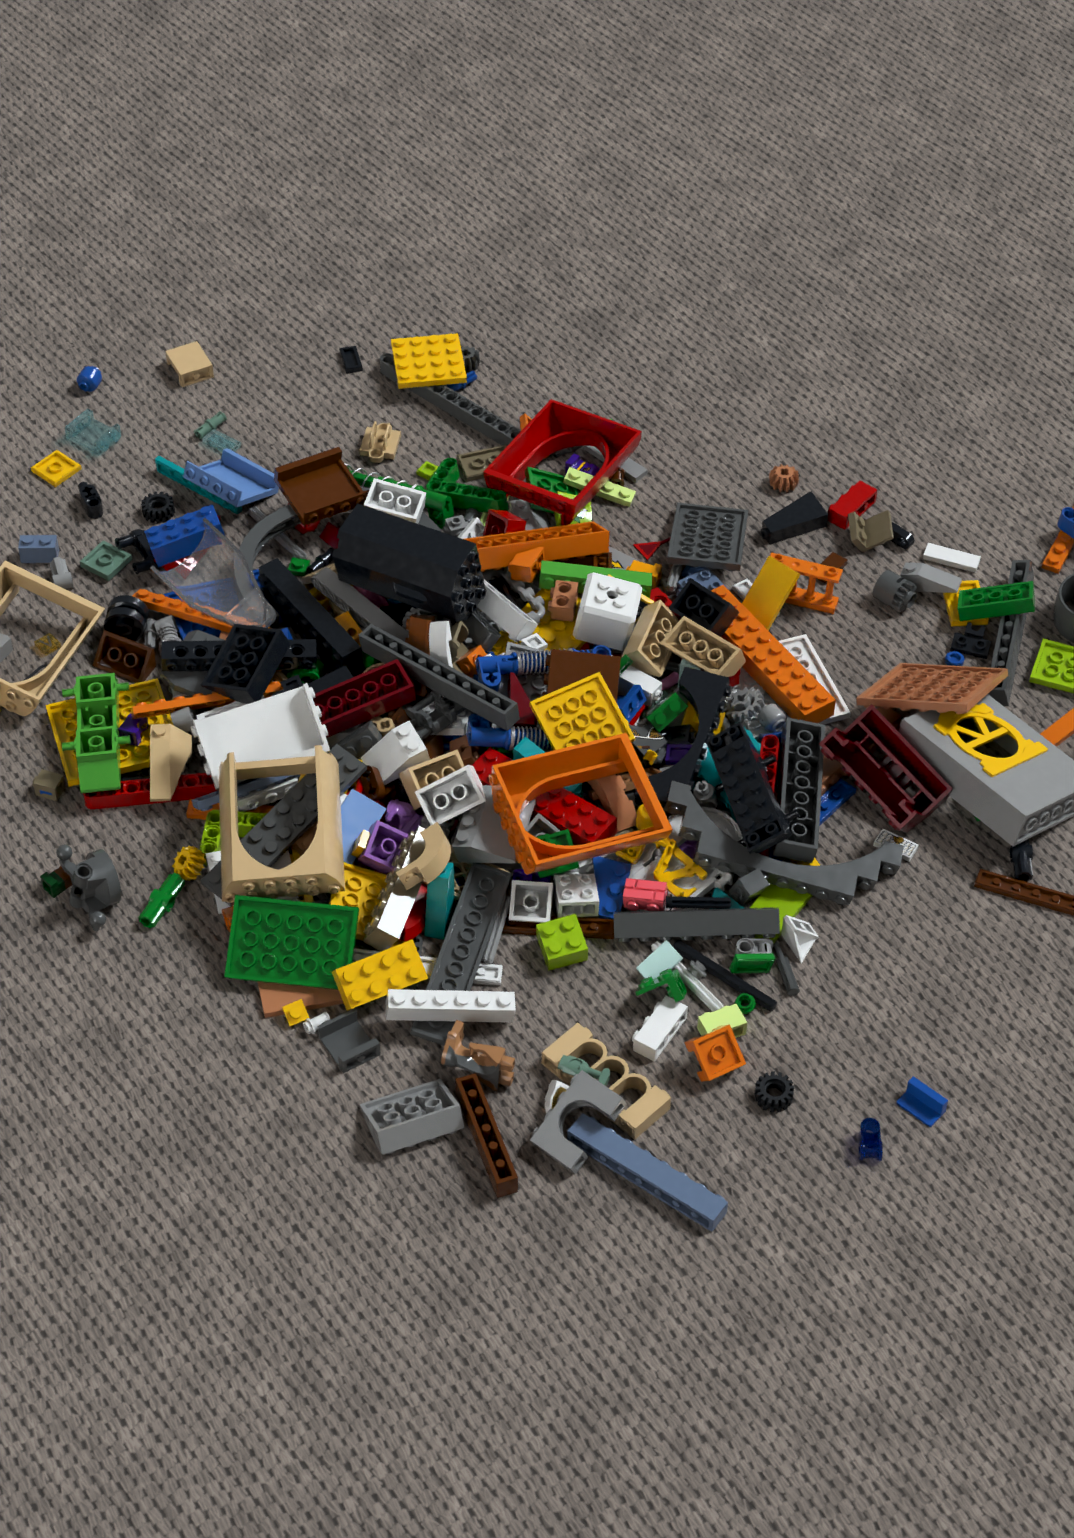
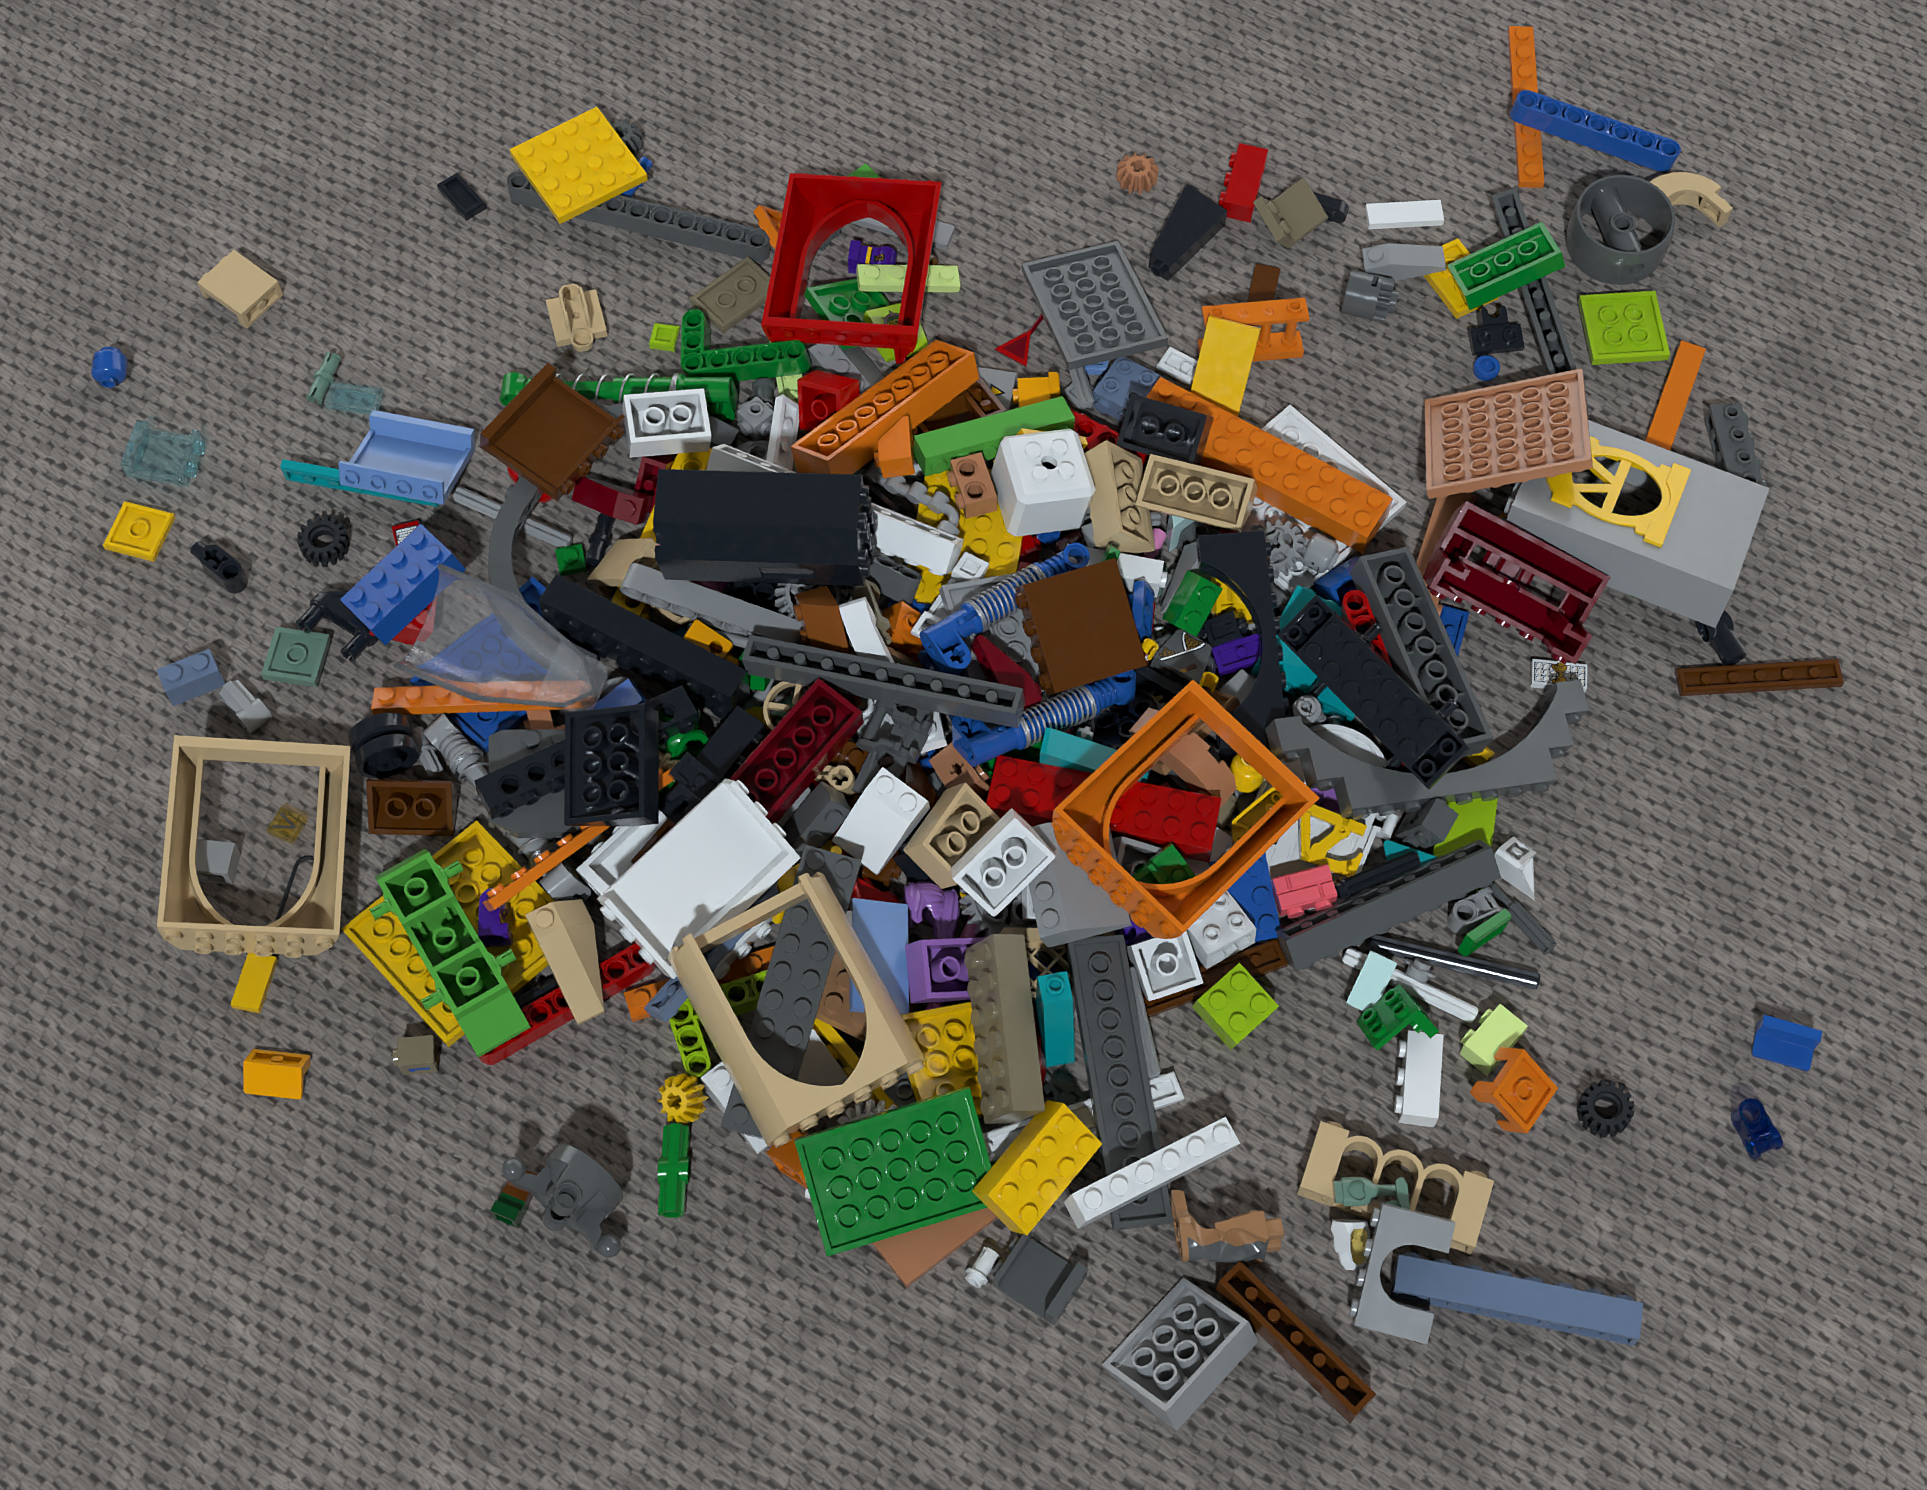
camera: 25 degrees left, 15 degrees up
(295, 1013) = (947, 1266): yellow plate -> none
(360, 843) = (909, 978): tile -> none
(373, 782) = (872, 872): reddish brown beam -> none
(432, 860) = (1044, 981): tan arch -> none
(580, 713) = (1108, 673): yellow plate -> none
(745, 998) = (1508, 987): green plate -> none

